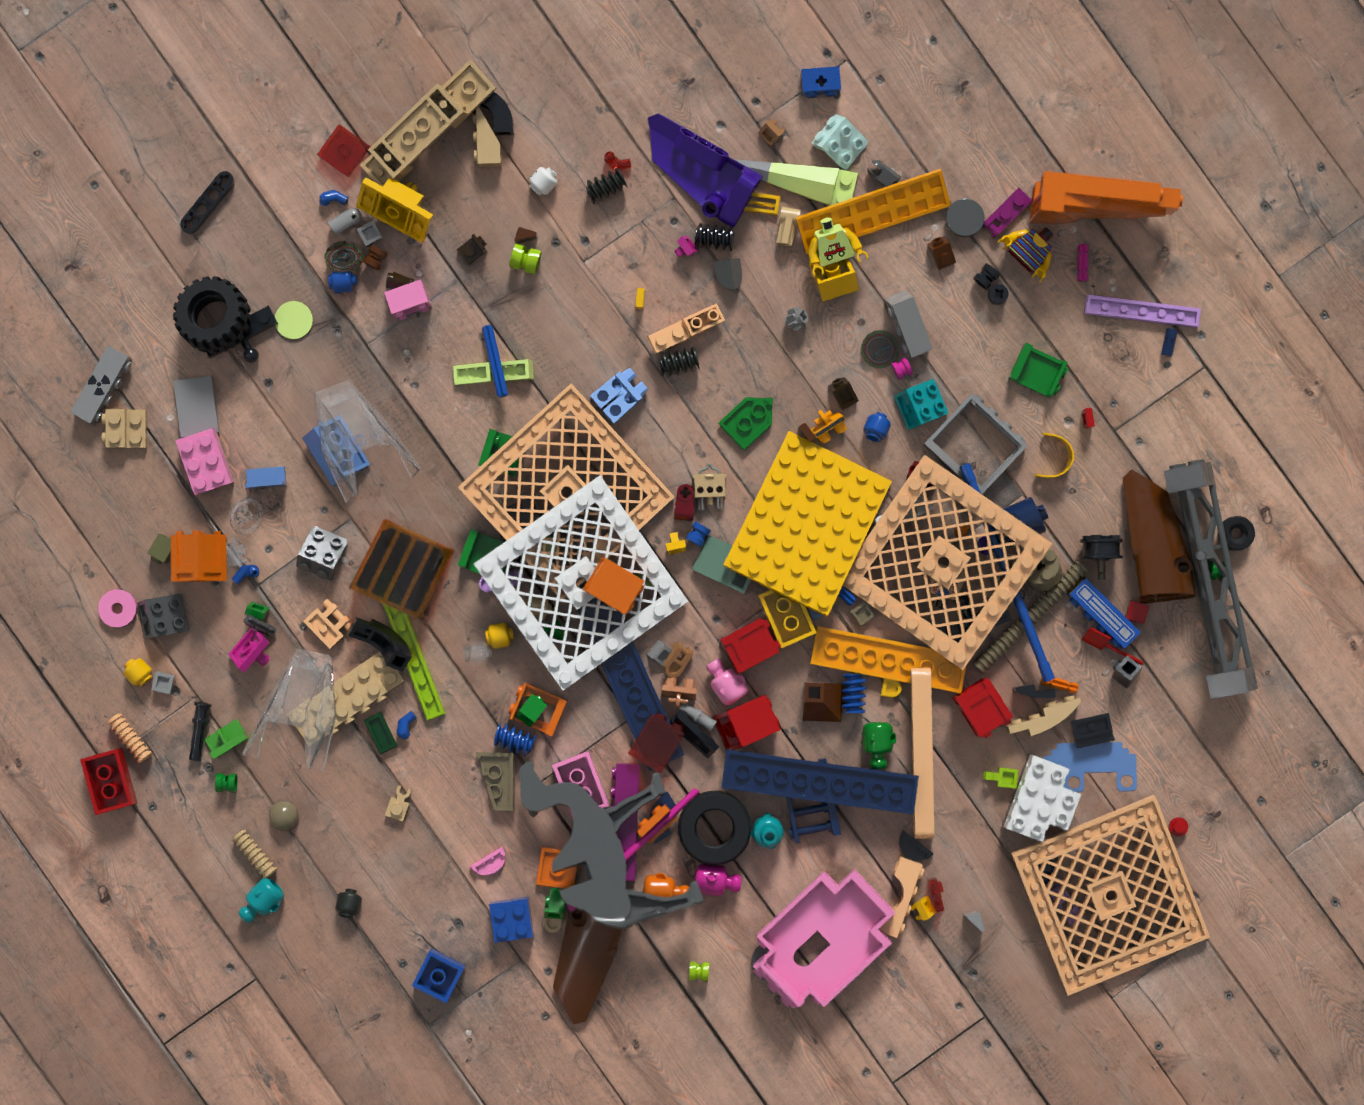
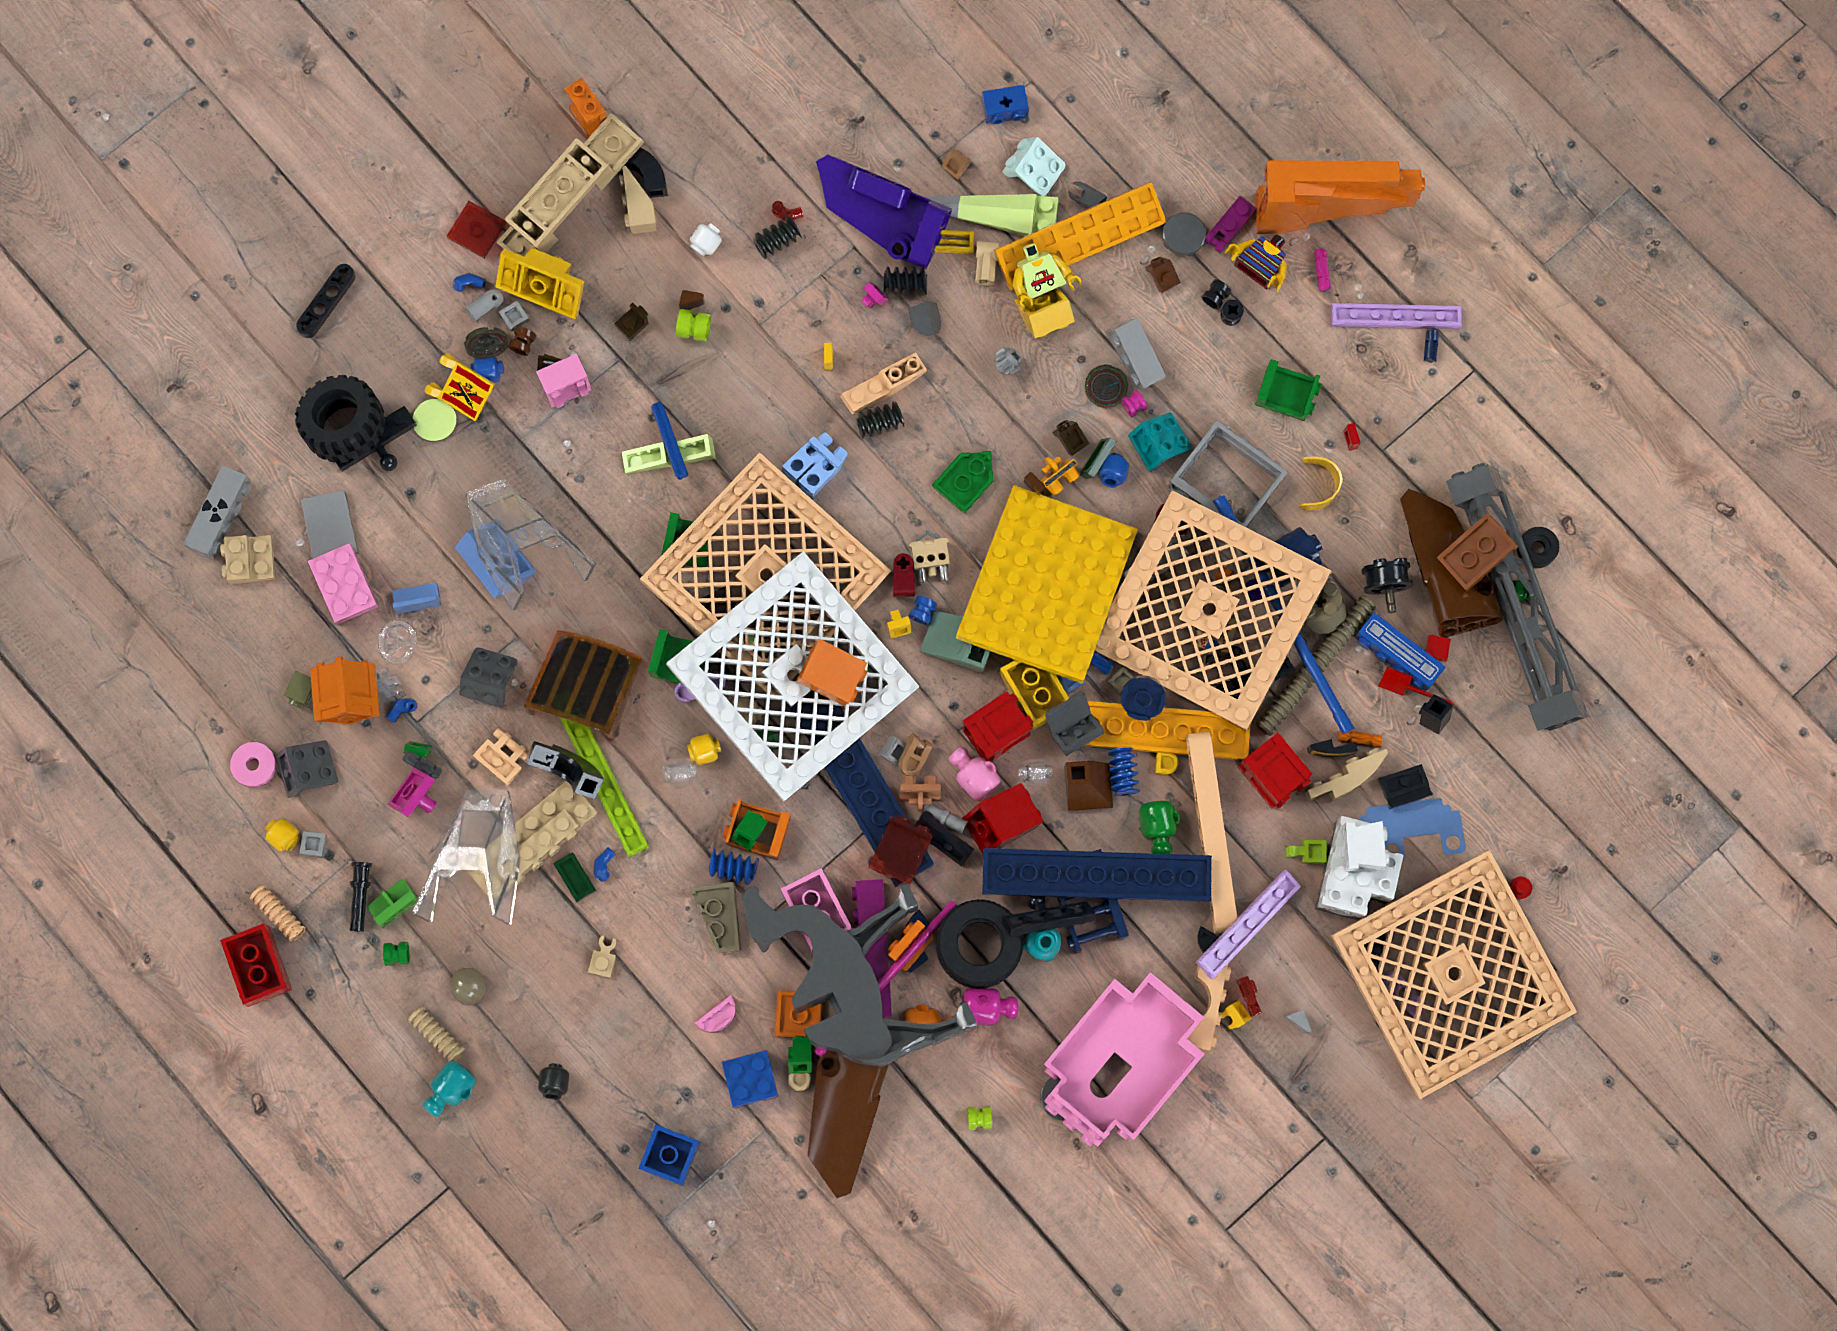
camera: 10 degrees left, 10 degrees down
(320, 296) = (464, 388): none -> yellow flag
(448, 50) = (585, 106): none -> orange panel
(773, 815) = (1047, 918): none -> black plate
(778, 685) = (1035, 772): none -> clear head
(815, 650) = (1073, 724): none -> dark grey bracket
(864, 414) = (1097, 458): none -> tile
(877, 633) = (1143, 697): none -> dark blue tile
(943, 835) = (1248, 924): none -> lavender tile
(1049, 785) = (1365, 846): none -> white hips
(1181, 538) = (1477, 551): none -> dark orange plate

